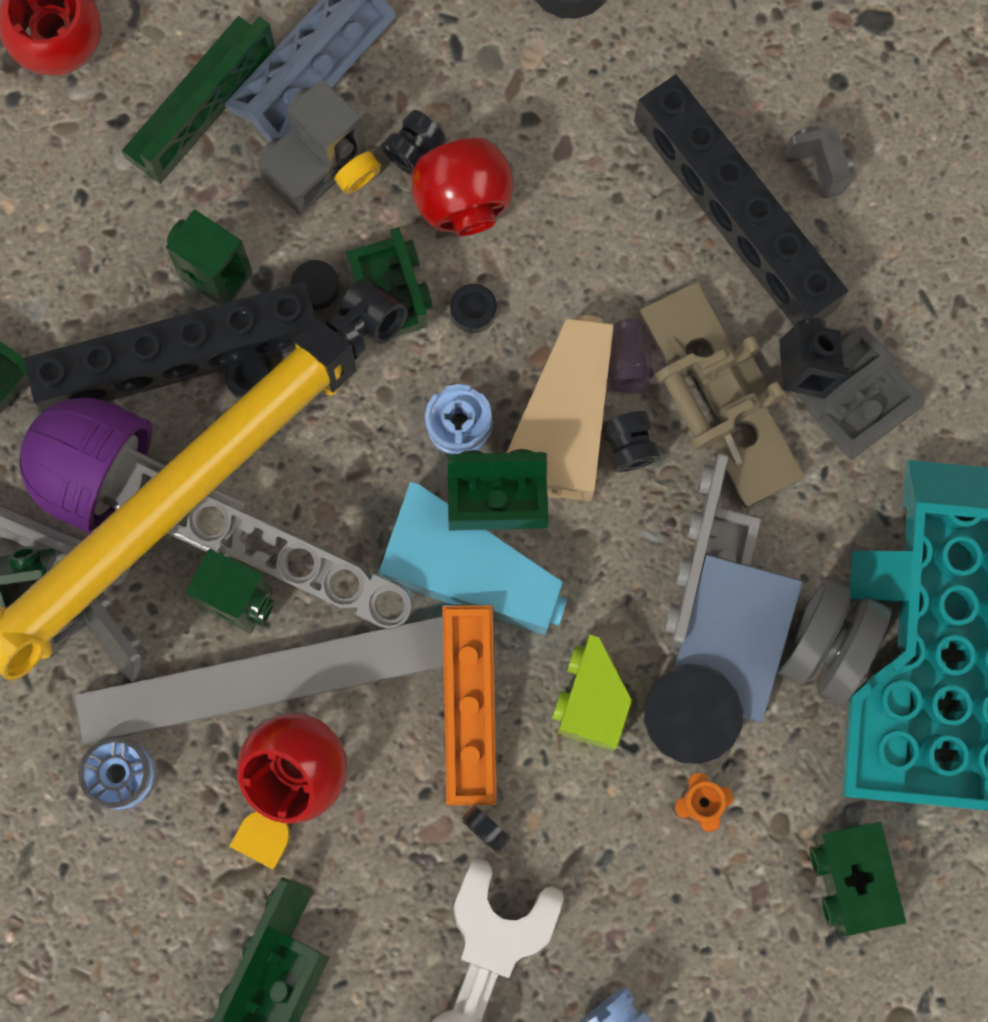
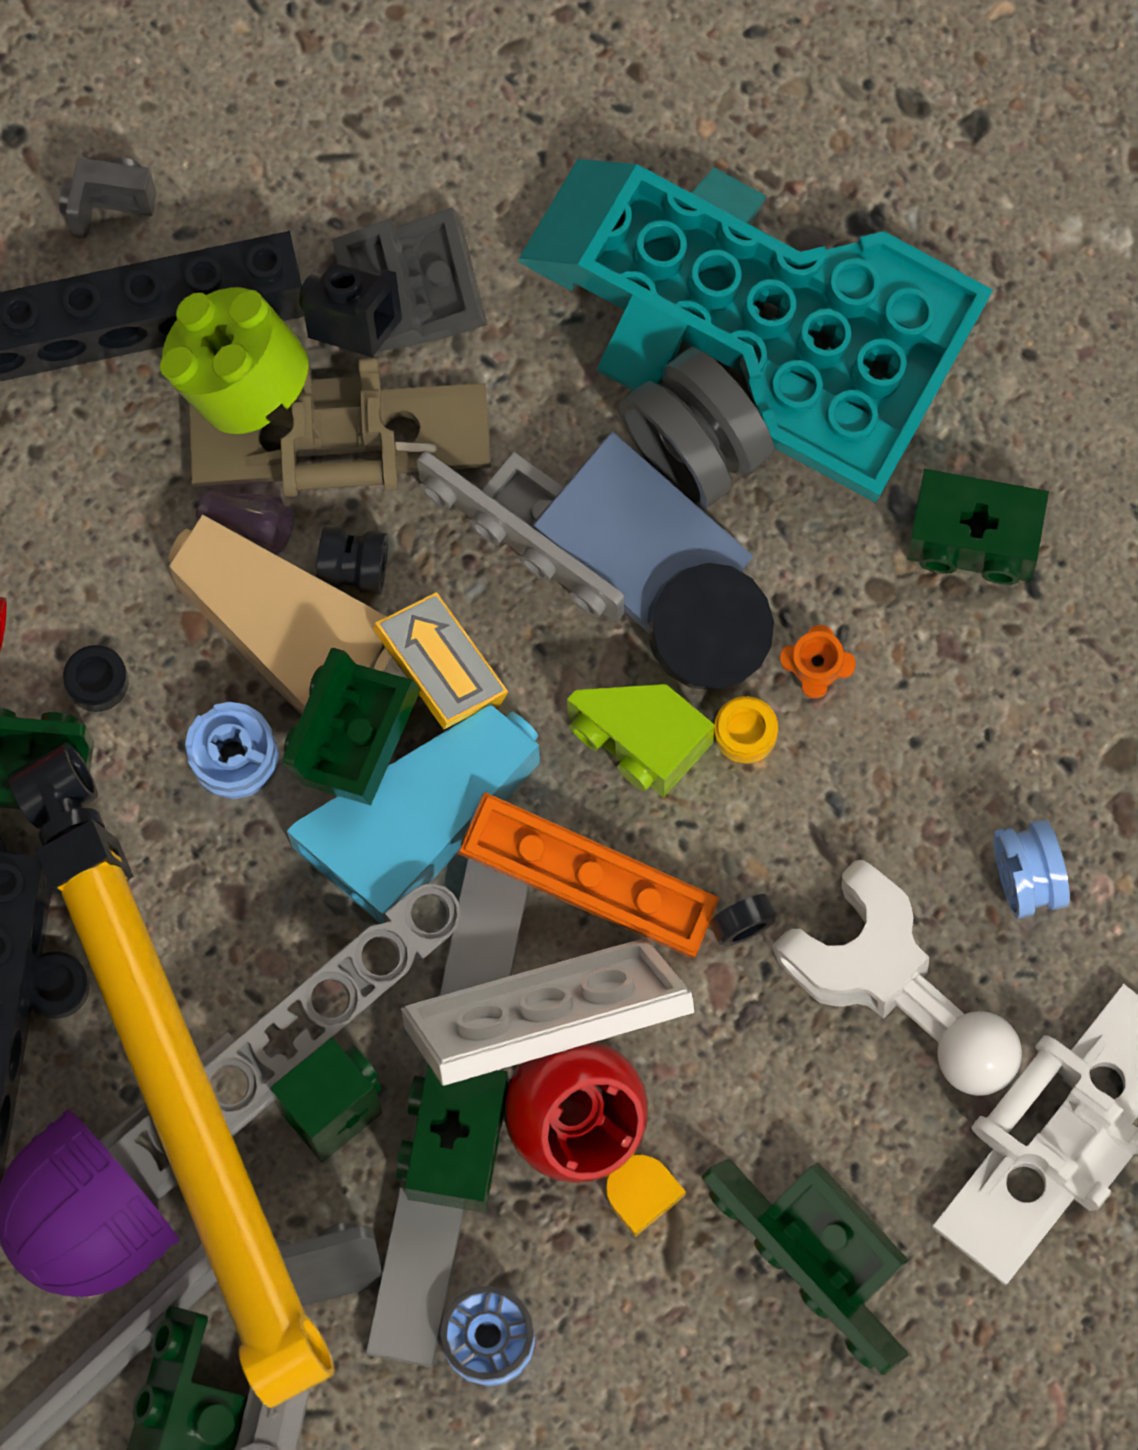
camera: 60 degrees left, 5 degrees down
(219, 710) = (461, 1174): none -> dark green brick
(353, 718) = (546, 1010): none -> white tile
(578, 533) = (440, 660): none -> panel
(631, 771) = (745, 729): none -> yellow tile
(734, 294) = (233, 359): none -> lime brick

